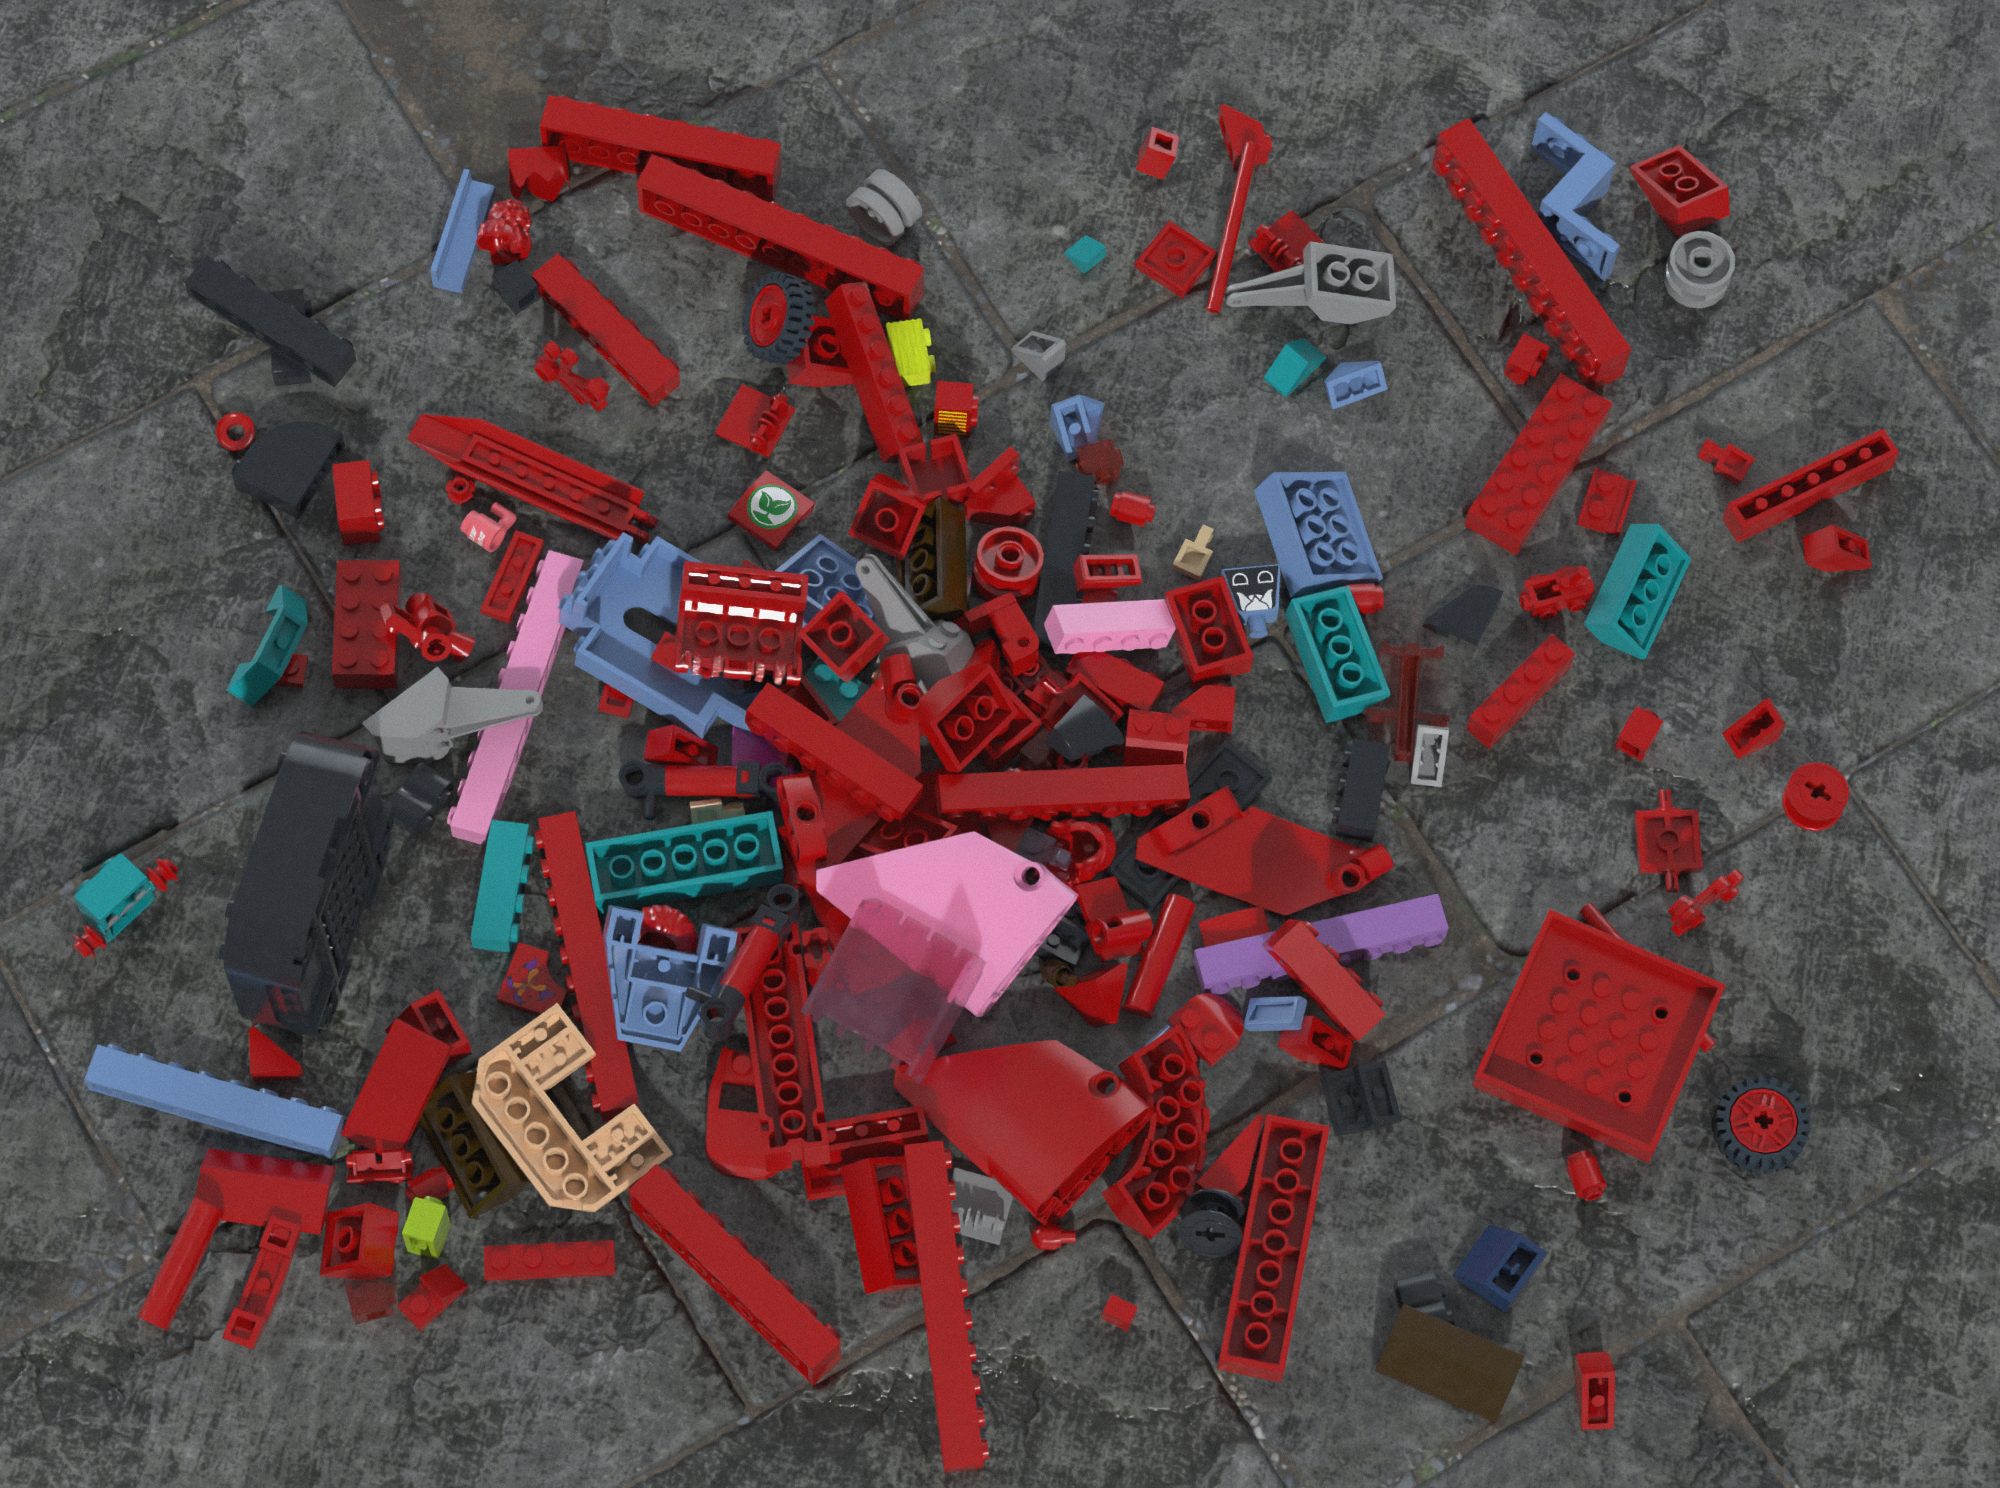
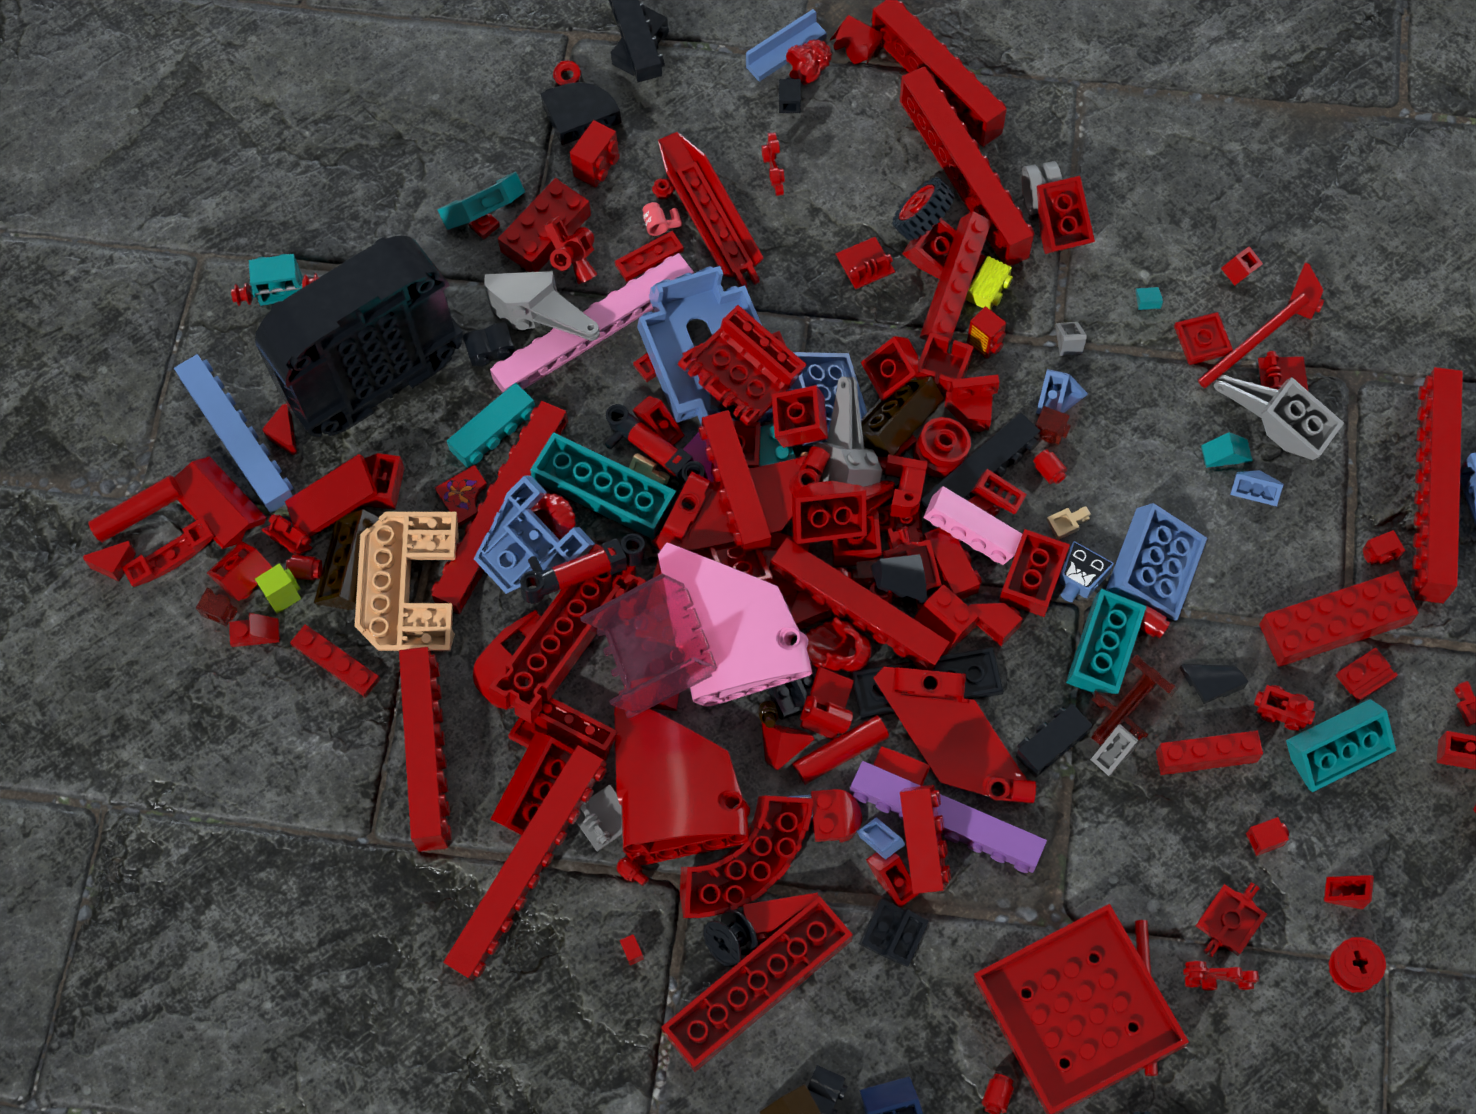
camera: 45 degrees right, 0 degrees up
(202, 1342) = (111, 559): none -> red slope
(606, 329) = (821, 153): red brick -> none
(770, 510) = (830, 319): slope -> none
(934, 224) = (1063, 215): none -> red slope
(1041, 849) = (817, 630): plate -> none

